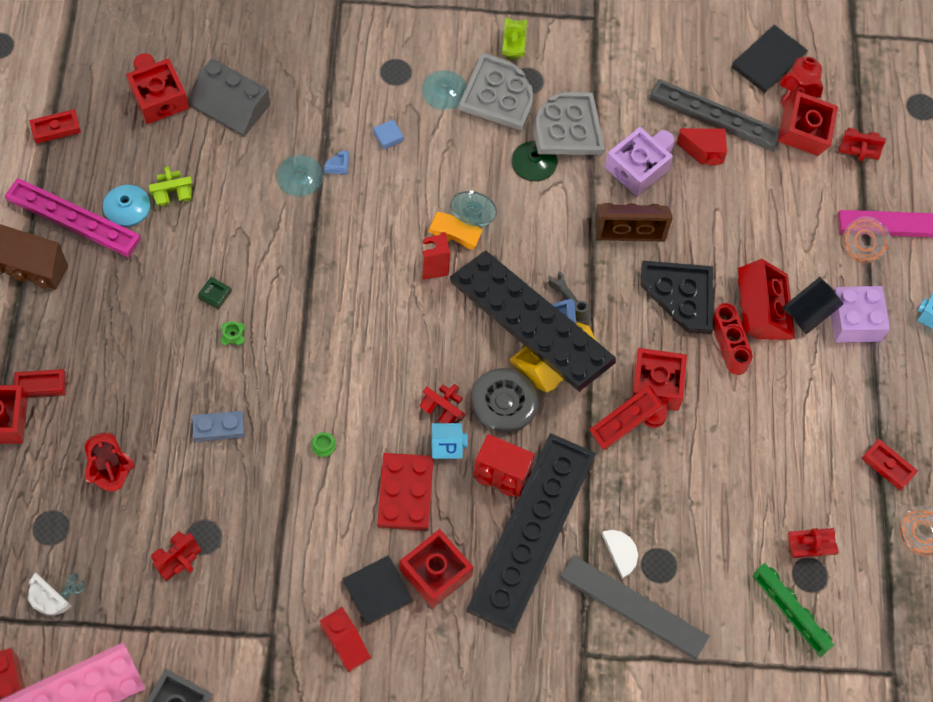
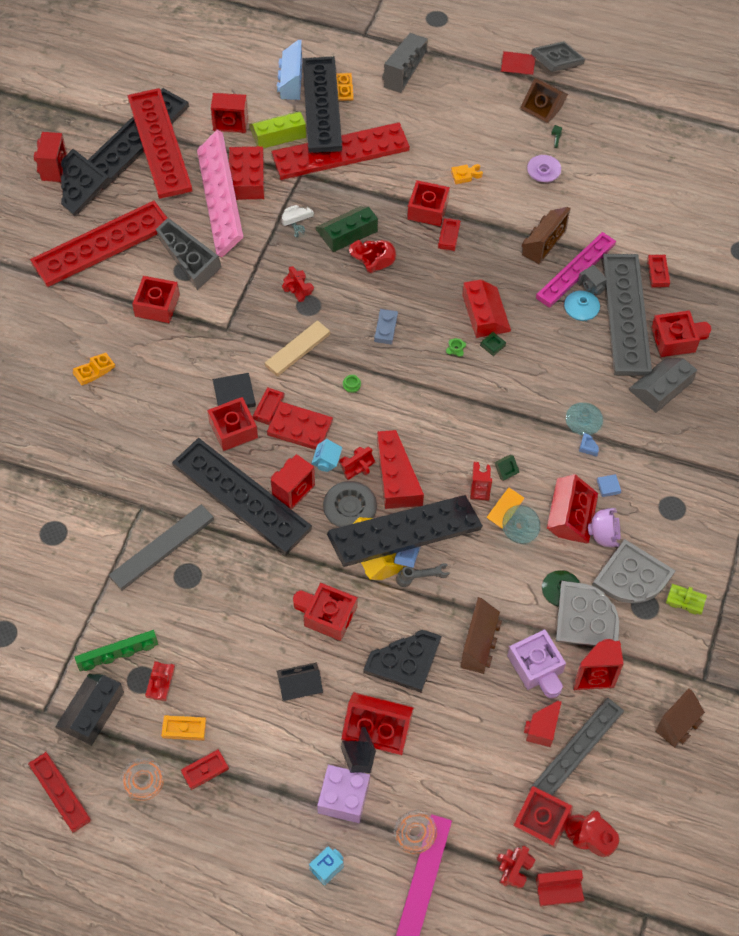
camera: 110 degrees right, 5 degrees down
(54, 517) = (348, 228): none -> dark green slope
(89, 193) = (592, 280): none -> dark grey brick
(131, 151) = (626, 315): none -> dark grey plate
(161, 190) = (590, 328): lime hips -> none
(164, 311) = (485, 308): none -> red slope
(283, 528) = (297, 348): none -> tan tile
(344, 639) = (206, 363): red slope -> none
(385, 539) = (268, 405): none -> red tile
(399, 239) = (507, 467): none -> dark green plate
(436, 163) = (572, 509): none -> red slope
(440, 96) = (652, 545): clear light blue dish -> none
(445, 356) = (397, 475): none -> red wedge
(452, 123) = (605, 528): none -> lavender cylinder
(622, 551) = (205, 551): white tile -> none
(626, 417) = (304, 576): red plate -> none
(633, 94) = (600, 667): none -> red slope
(653, 27) = (681, 719): none -> reddish brown slope
(732, 349) = (342, 677): red beam -> none
(746, 396) = (300, 681): none -> black panel
(769, 58) = (631, 819): black tile -> none
(852, 502) = (184, 727): none -> light orange plate
(861, 105) = (560, 887): none -> red panel
(873, 616) = (91, 708): none -> black slope

